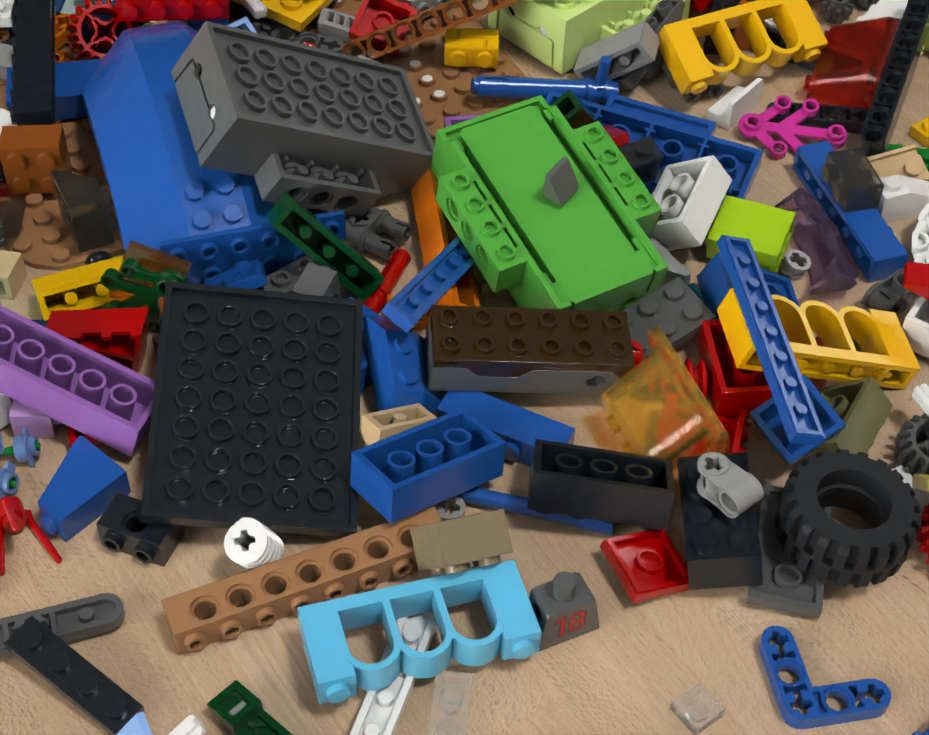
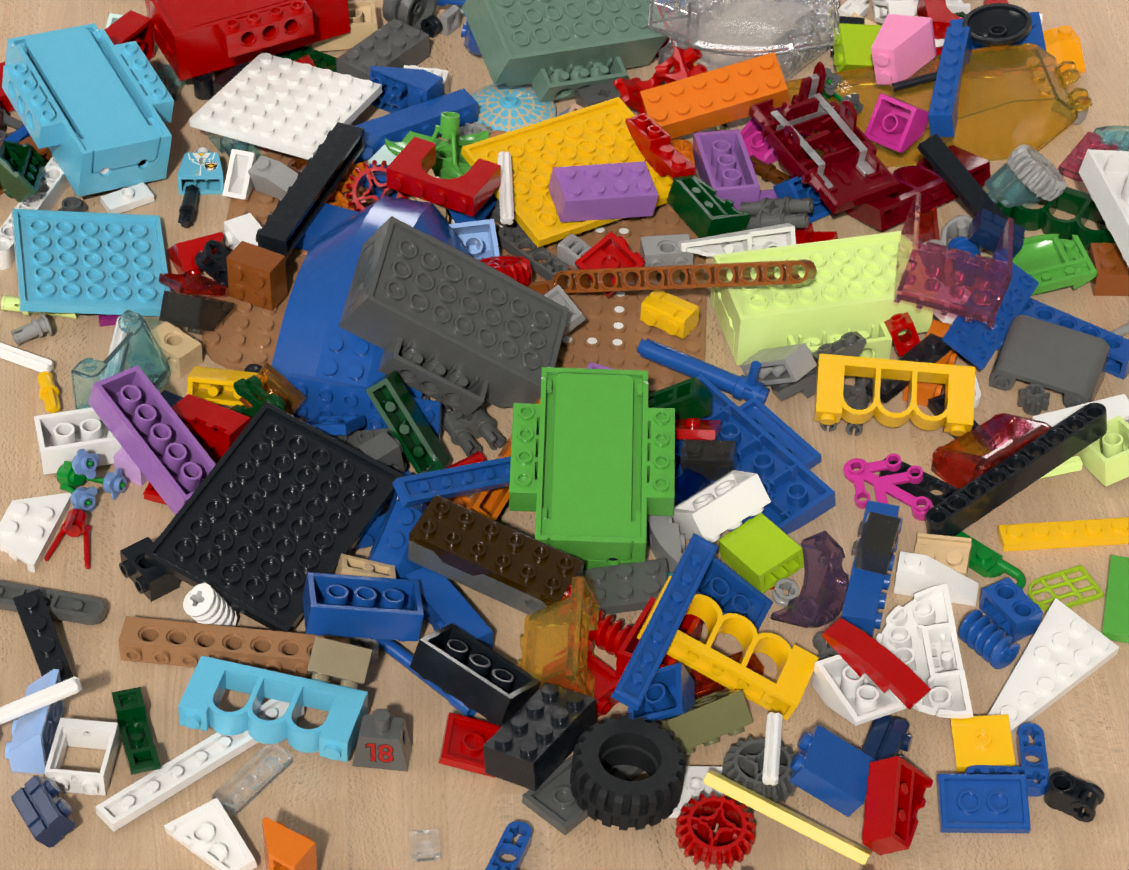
camera: 30 degrees right, 5 degrees down
(80, 490) = (127, 525): blue slope -> none
(84, 210) = (261, 328): clear smoke slope -> none
(560, 182) = (601, 443): dark grey slope -> none
(727, 484) = (546, 705): light grey piece -> none
(735, 104) = (864, 447): white panel -> none

